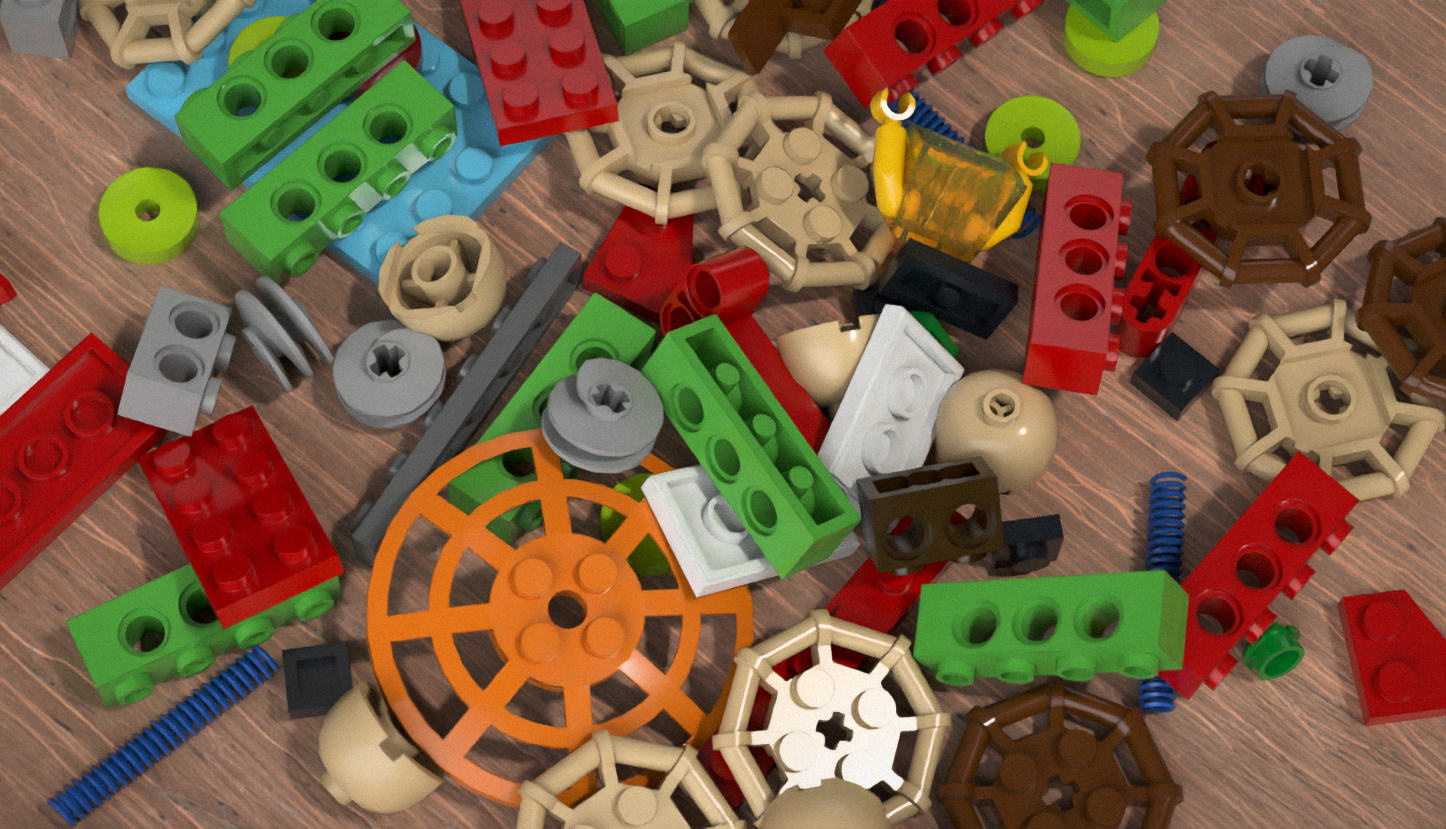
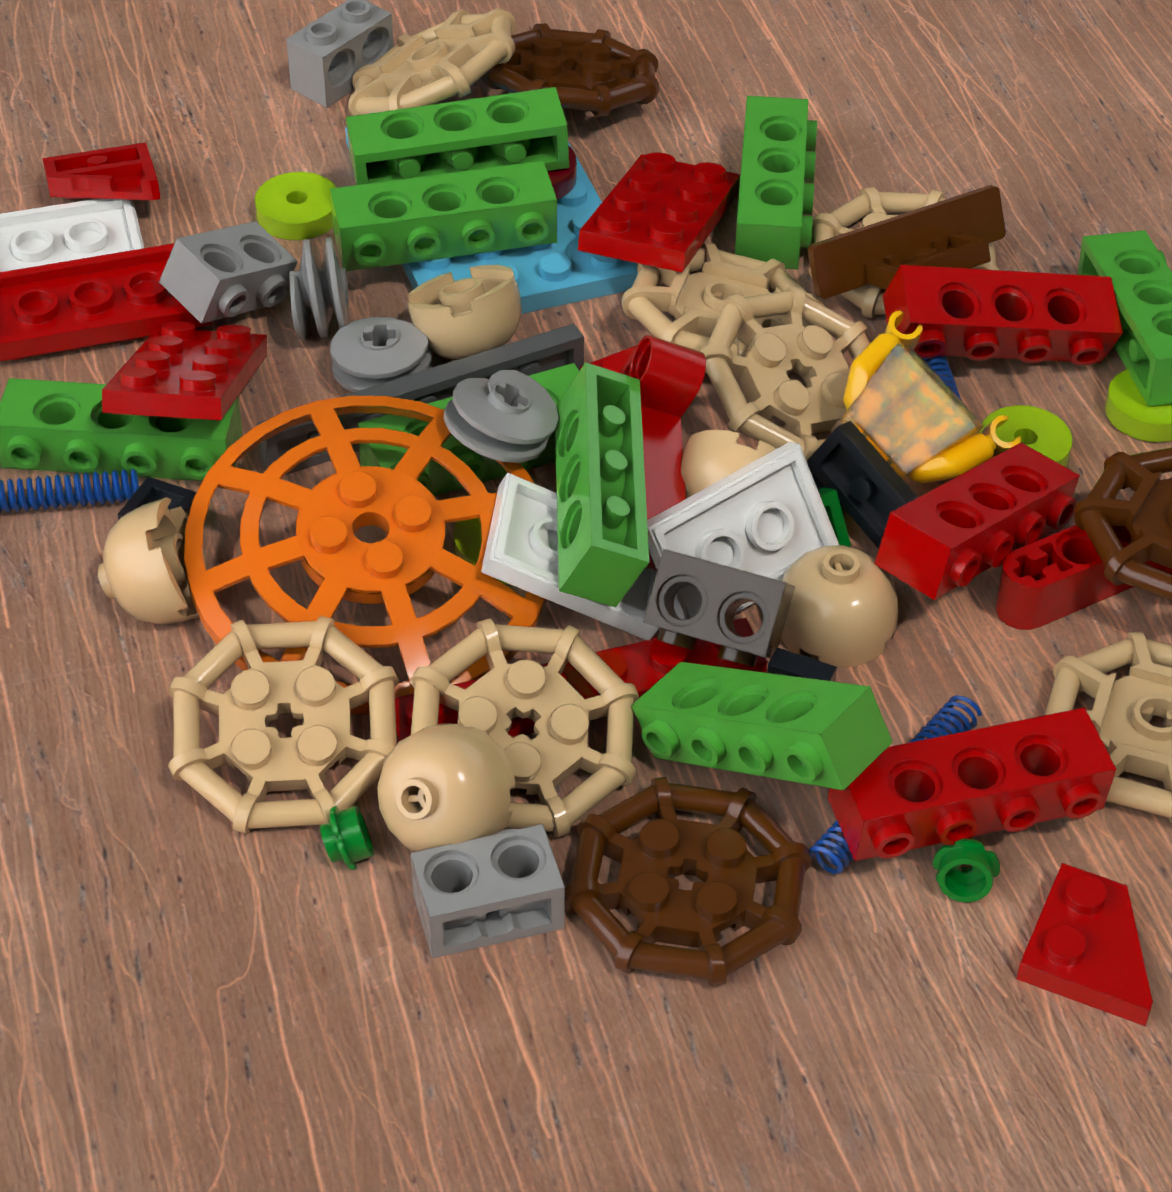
camera: 35 degrees right, 20 degrees down
(1174, 376) = (1027, 645): black plate -> none

